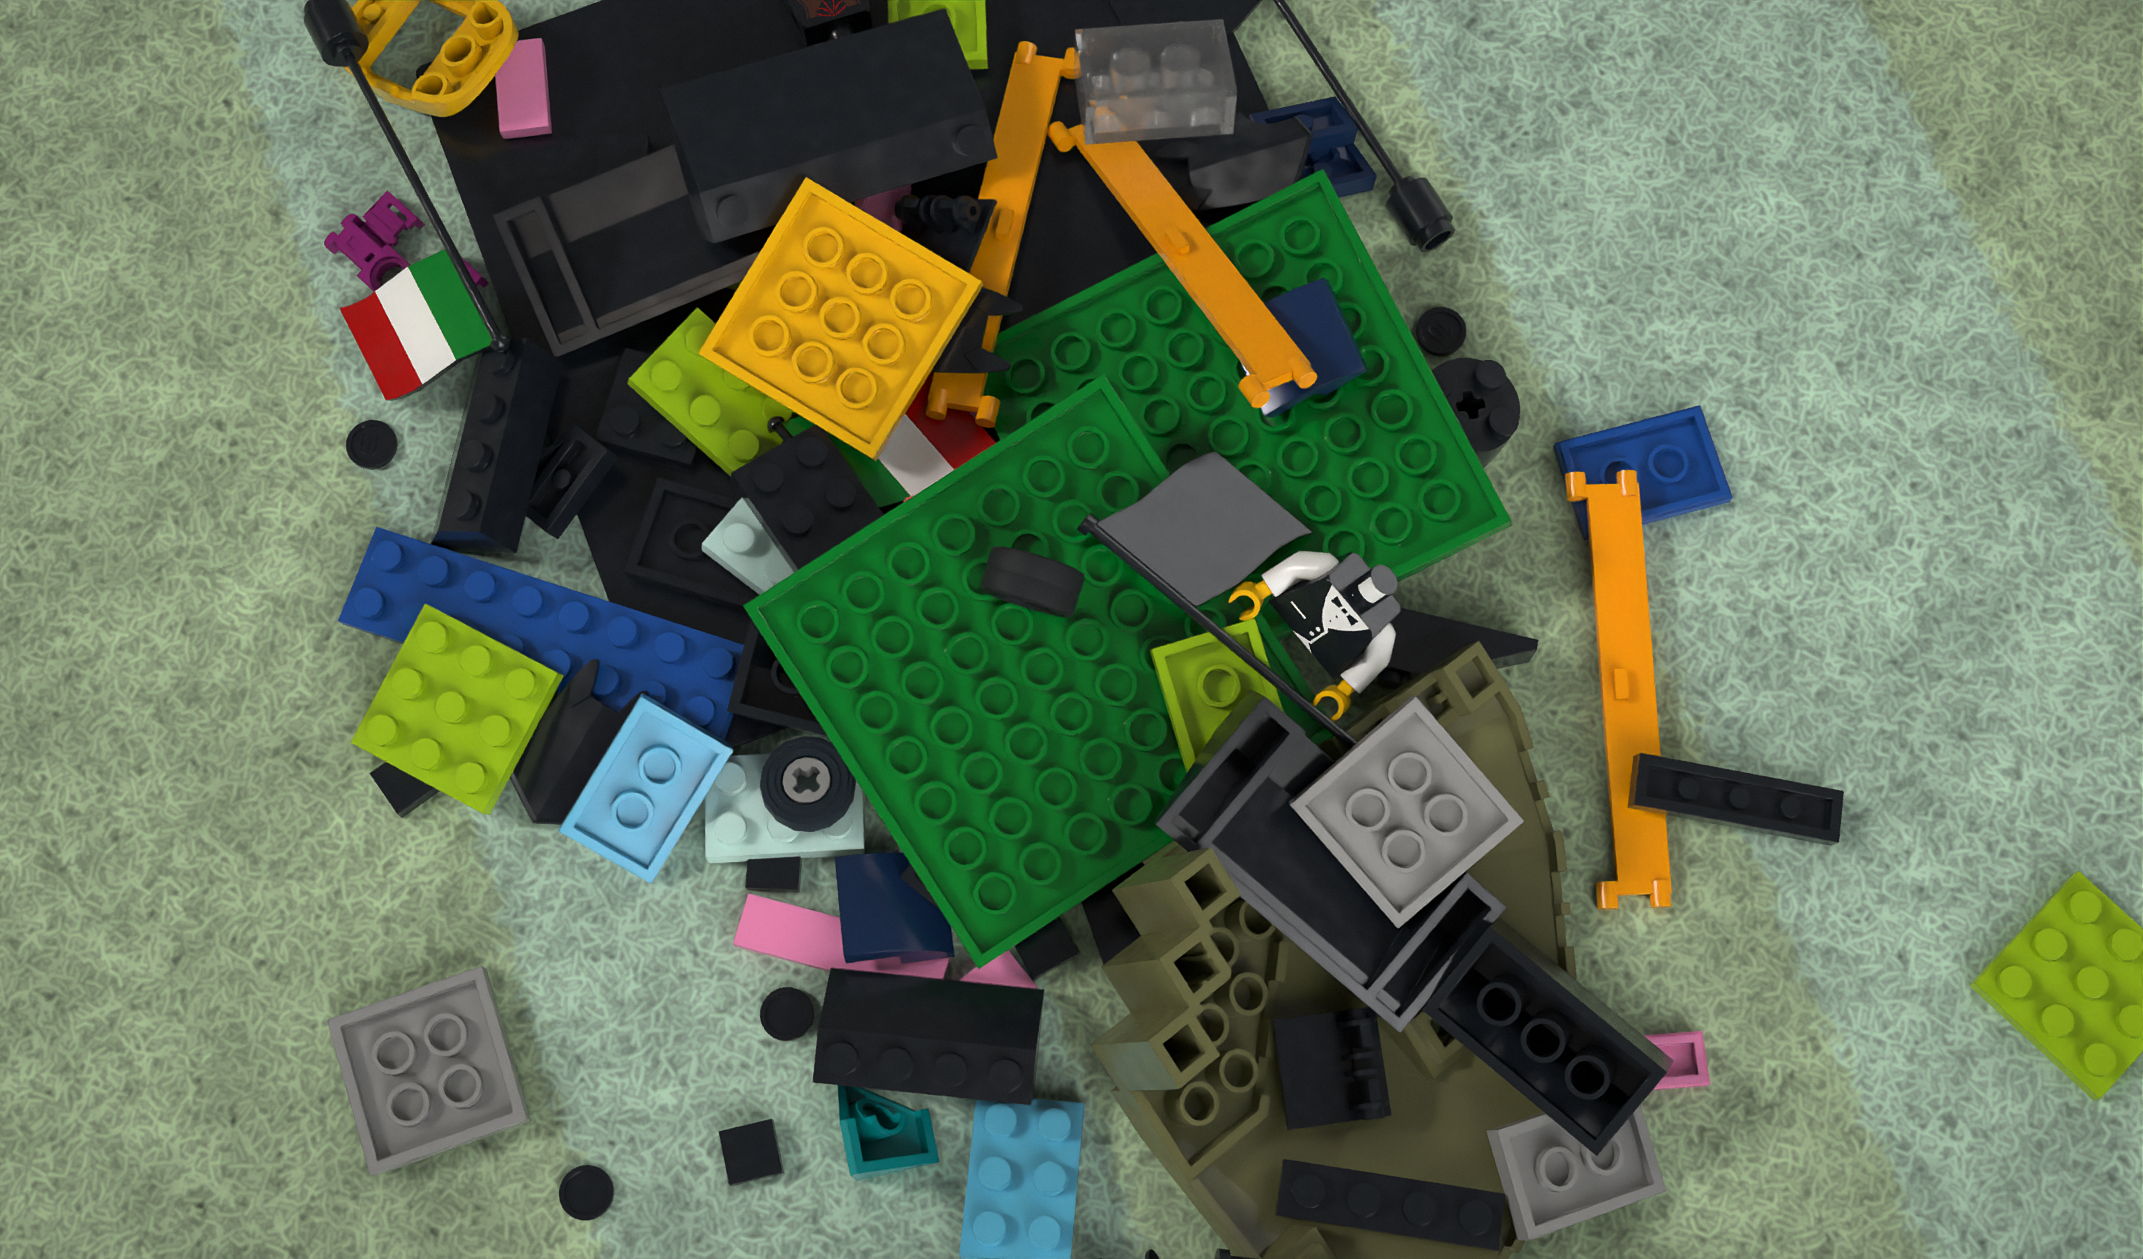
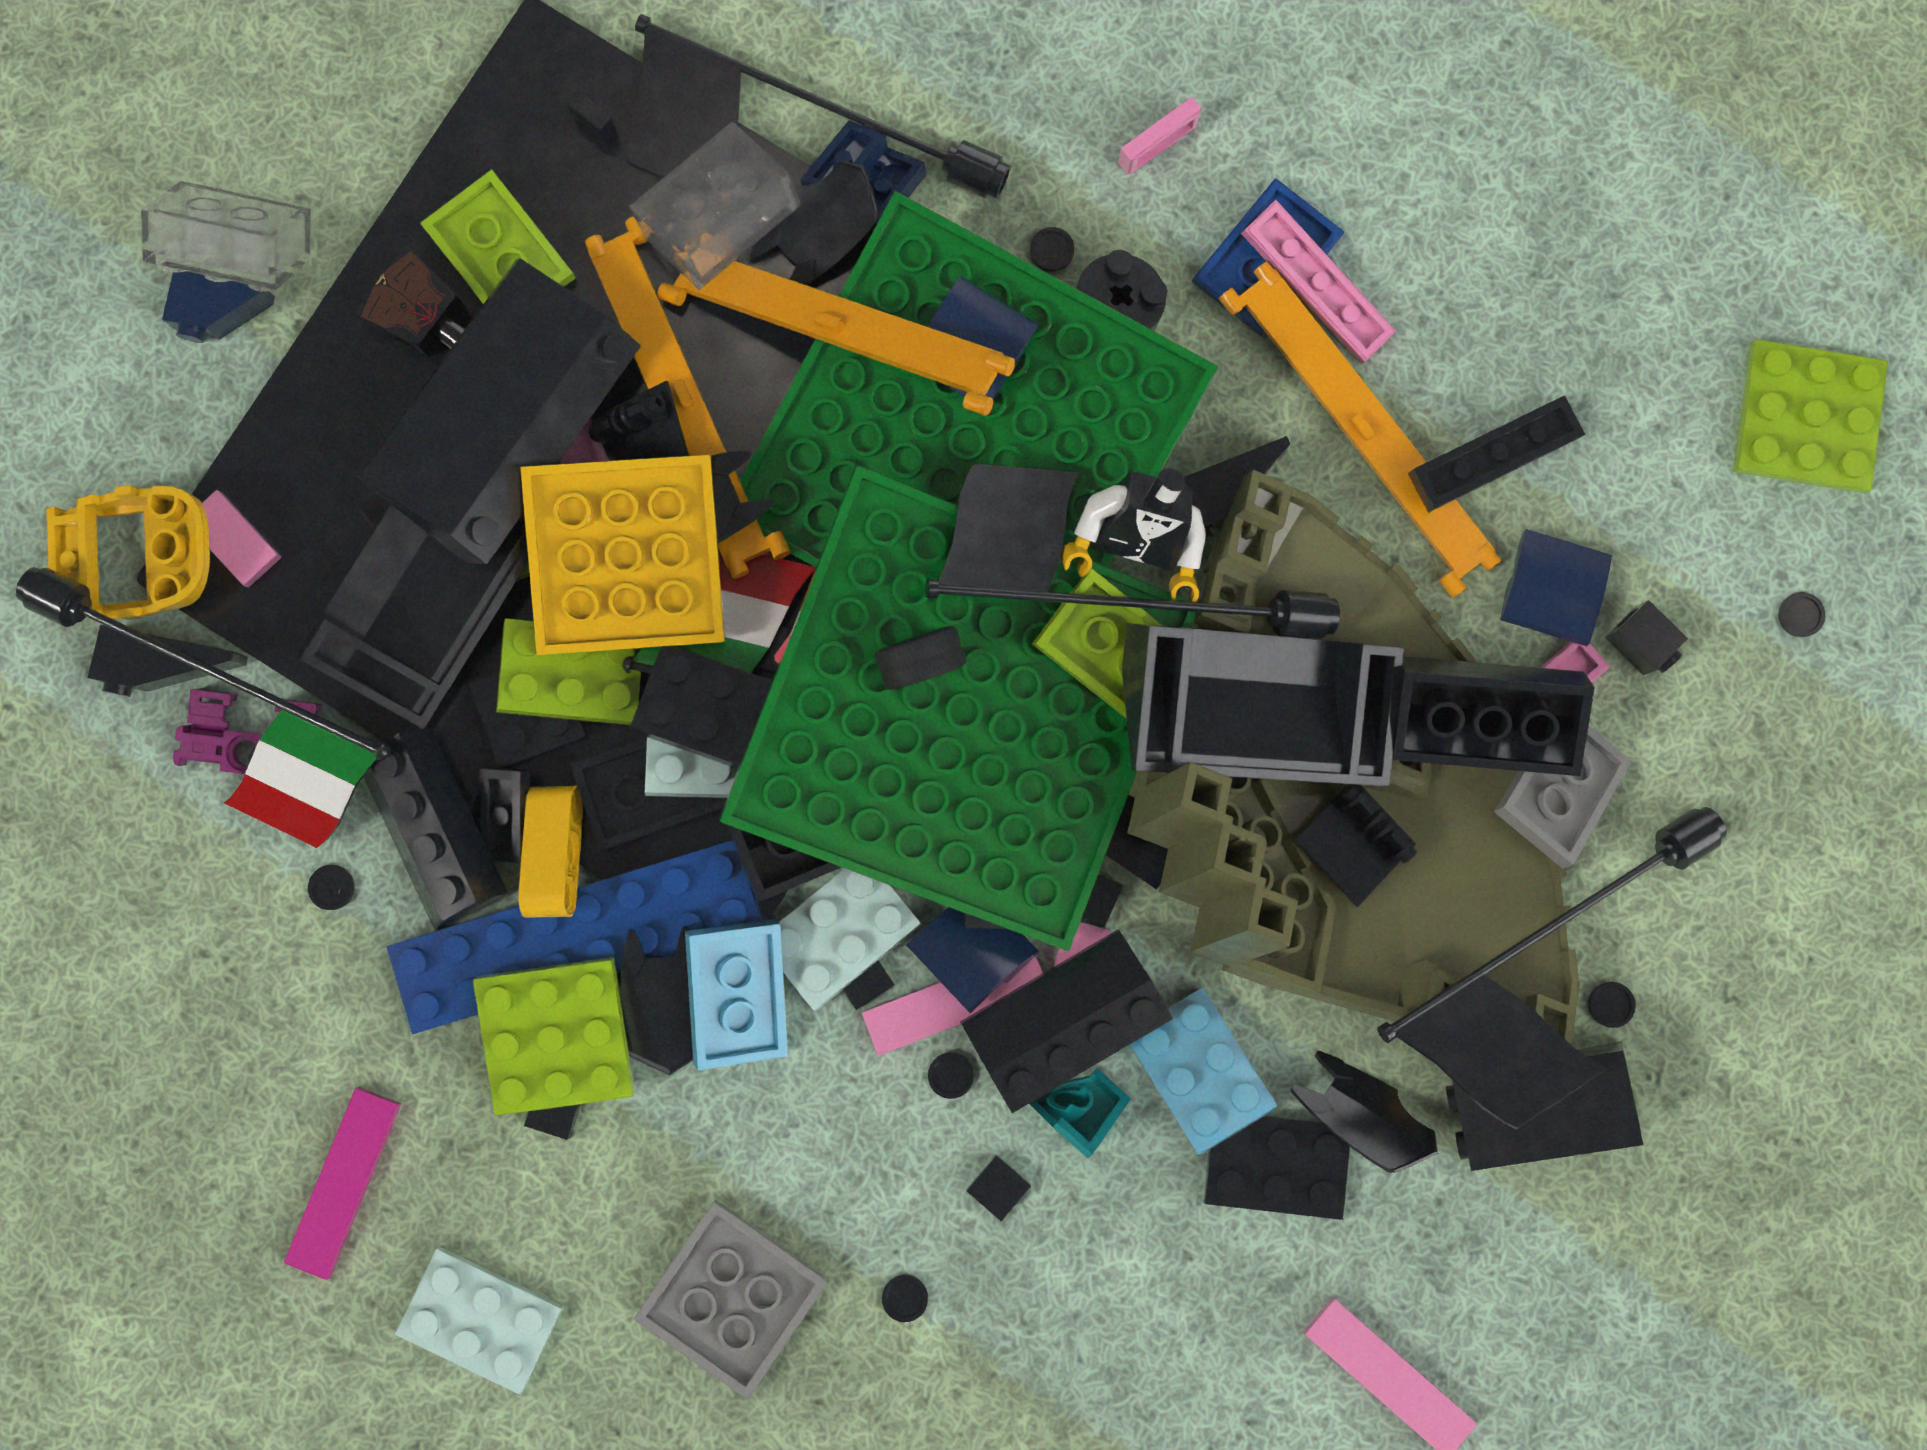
camera: 40 degrees left, 10 degrees up
(175, 709) = (342, 1183): none -> dark pink tile
(194, 922) = (479, 1320): none -> light aqua plate
(353, 134) = (130, 665): none -> black slope
(579, 541) = (550, 852): none -> yellow beam
(810, 809) = (831, 923): black bush -> none
(1390, 1205) = (1462, 908): black plate -> none
(1406, 811) = (1293, 631): light grey plate -> none
(1614, 295) = (1159, 136): none -> bright pink tile
(1673, 525) = (1318, 282): none -> bright pink tile
(1707, 969) = (1556, 587): none -> dark blue slope
(1765, 1082) = (1647, 639): none -> black brick
(1944, 1173) = (1801, 614): none -> black piece

